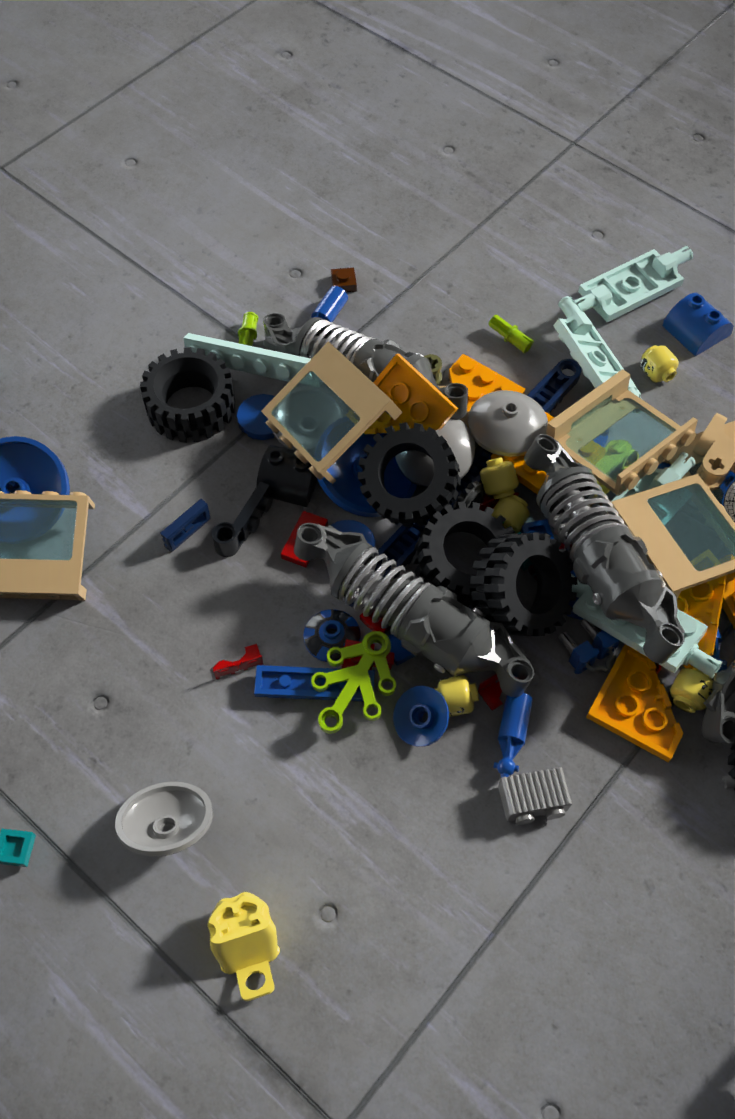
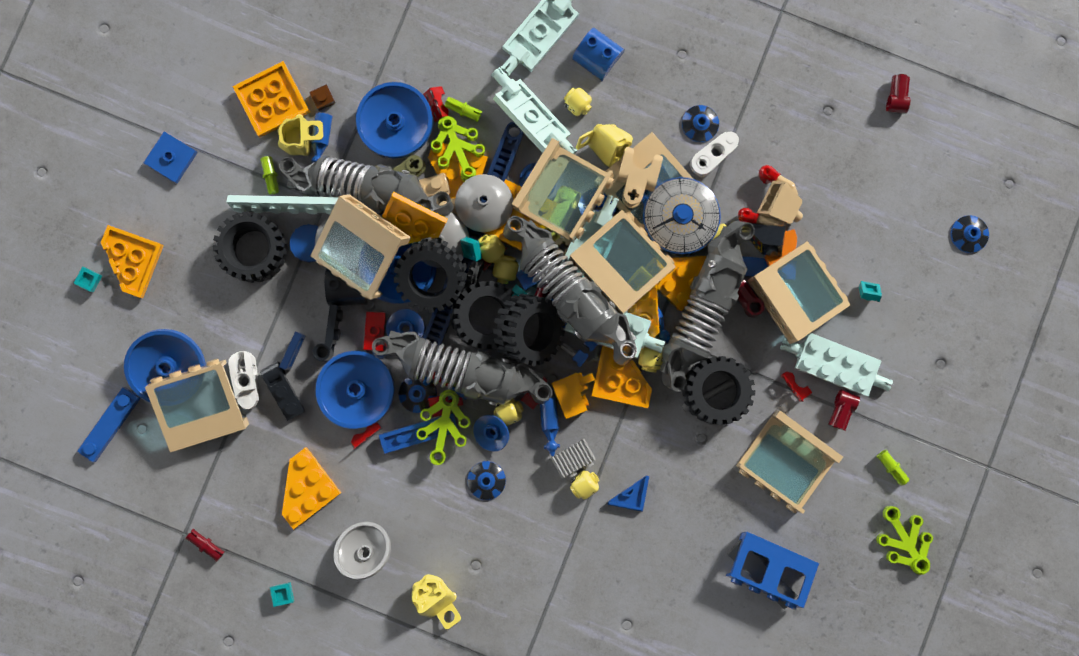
camera: 25 degrees left, 25 degrees up
(39, 369) = (131, 259): none -> light orange plate
(101, 556) = (247, 395): none -> white piece
(121, 711) = (306, 489): none -> light orange plate
(140, 287) = (170, 157): none -> blue plate
(149, 570) = (282, 390): none -> black plate
(248, 595) = (354, 389): none -> blue dish
(283, 264) = (270, 98): none -> light orange plate
(298, 298) = (295, 135): none -> light yellow piece
(384, 801) = (494, 473): none -> dish
(423, 316) = (394, 120): none -> blue dish
(473, 466) = (471, 249): none -> teal plate
(483, 311) = (437, 93): none -> red piece
(486, 346) = (456, 145): none -> lime plant
(542, 841) = (584, 484): none -> light yellow head
(555, 702) = (569, 395): none -> light orange hinge
(613, 890) = (633, 496): none -> blue tile
(685, 403) = (606, 142): none -> light yellow piece

